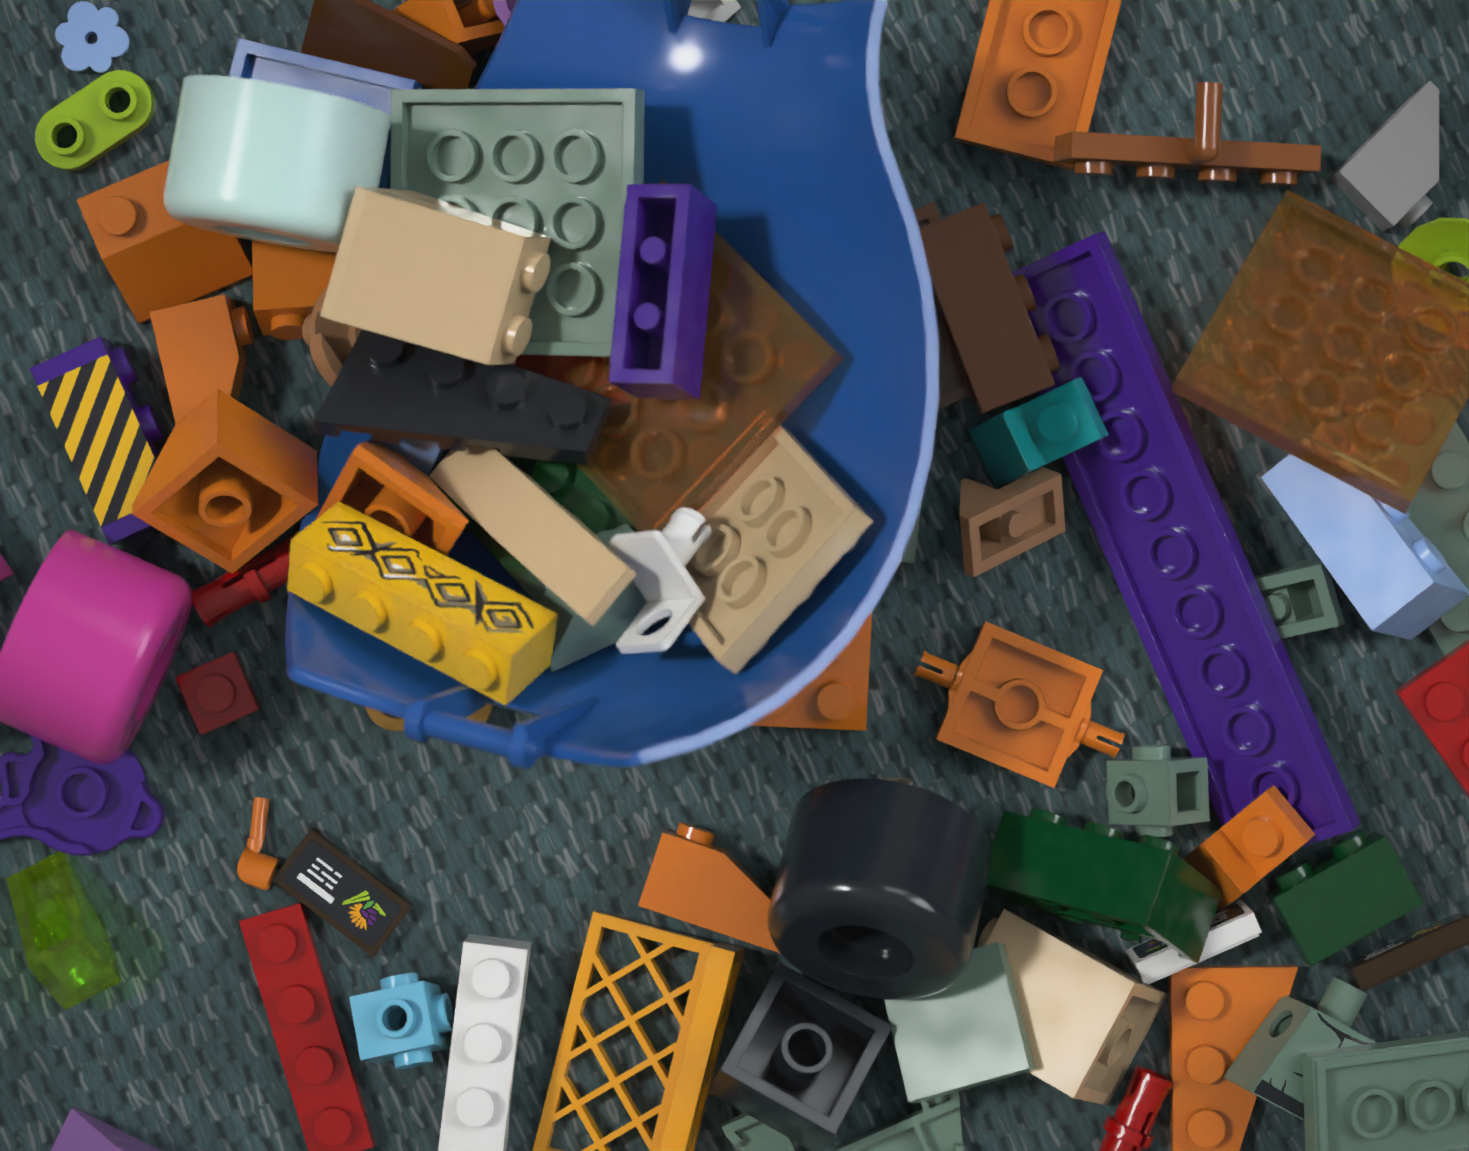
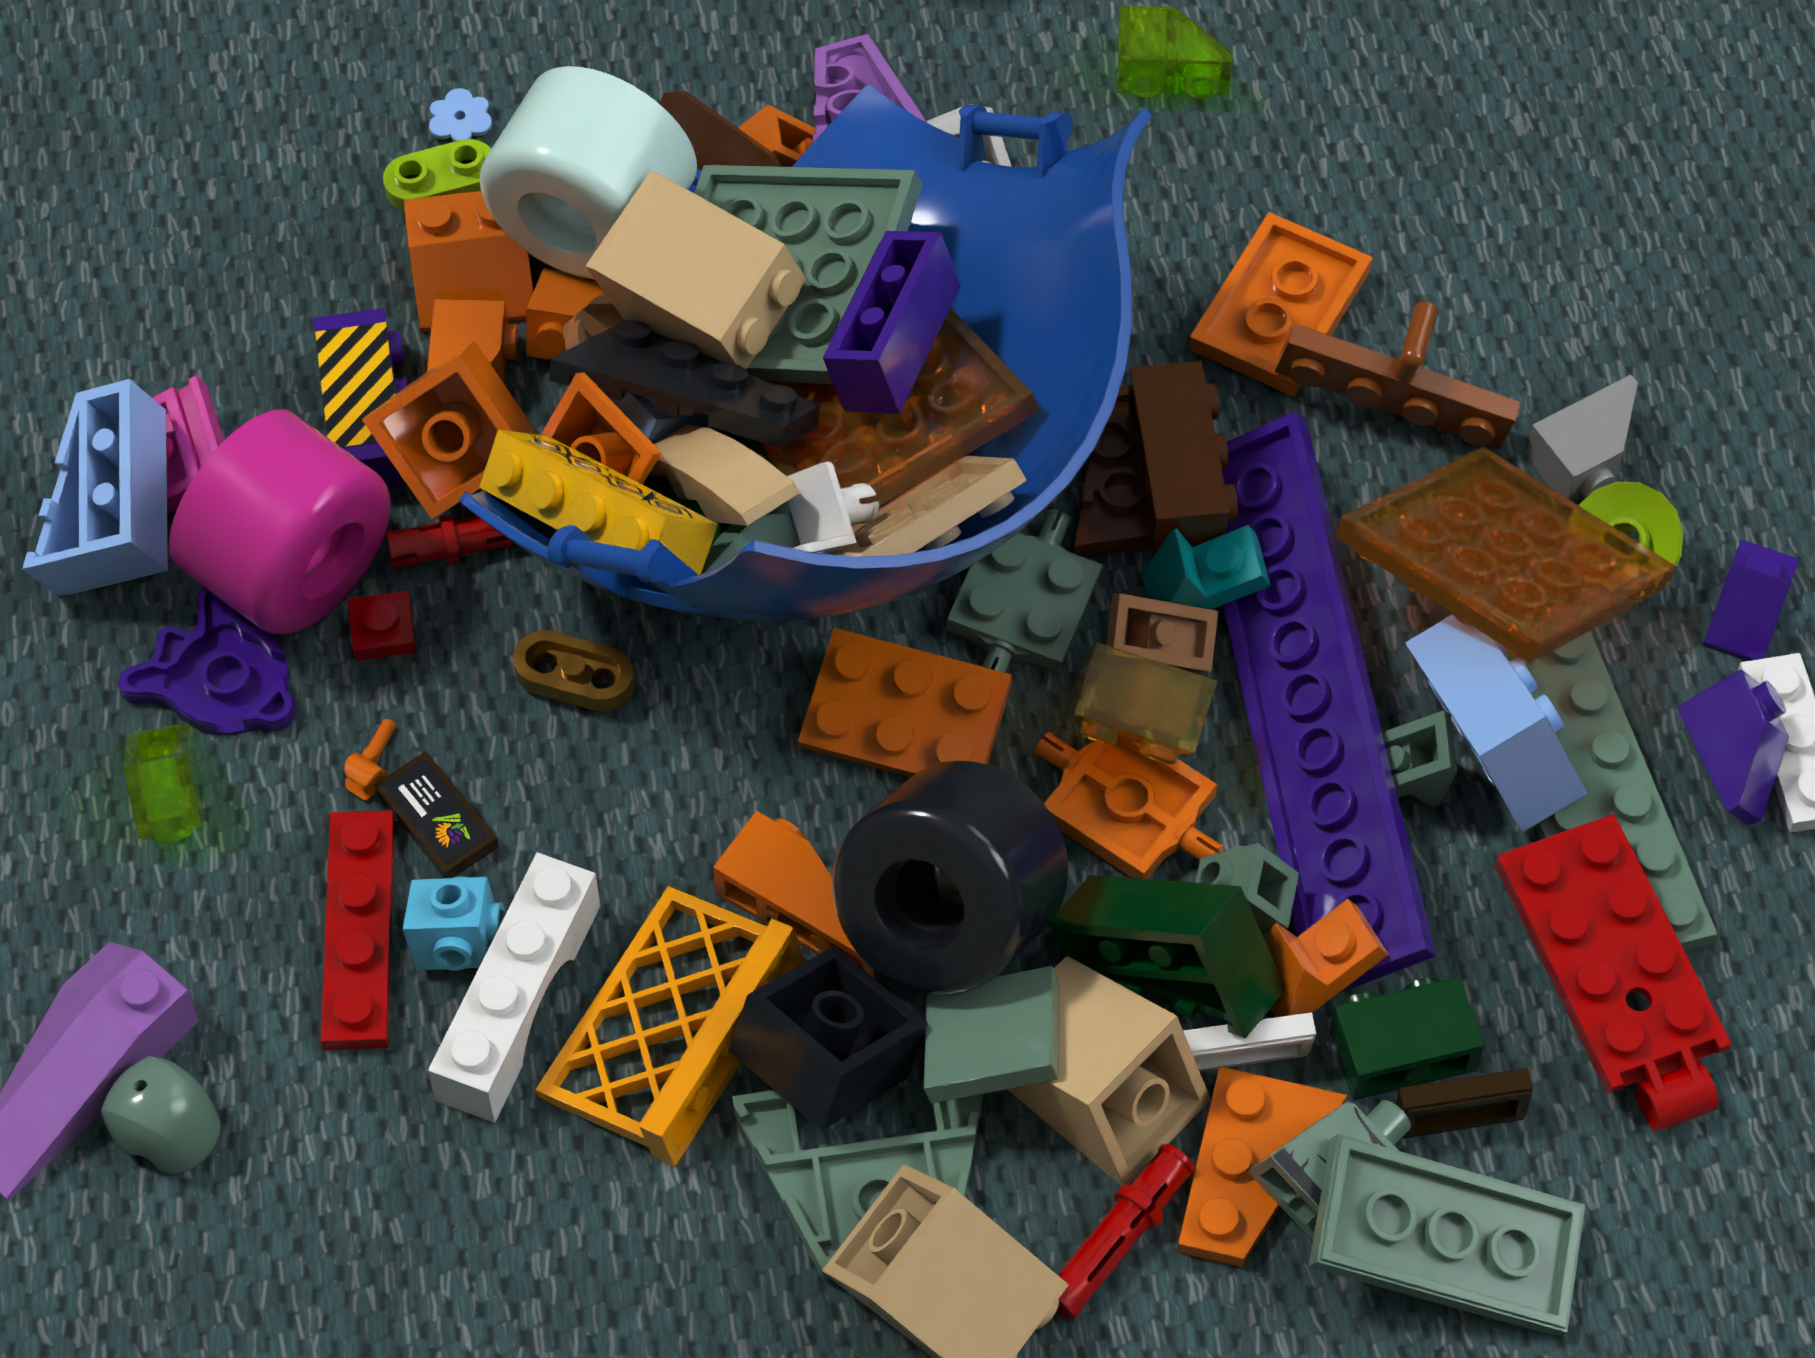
camera: 15 degrees right, 30 degrees down
(1013, 617) = (1140, 703): none -> clear yellow slope

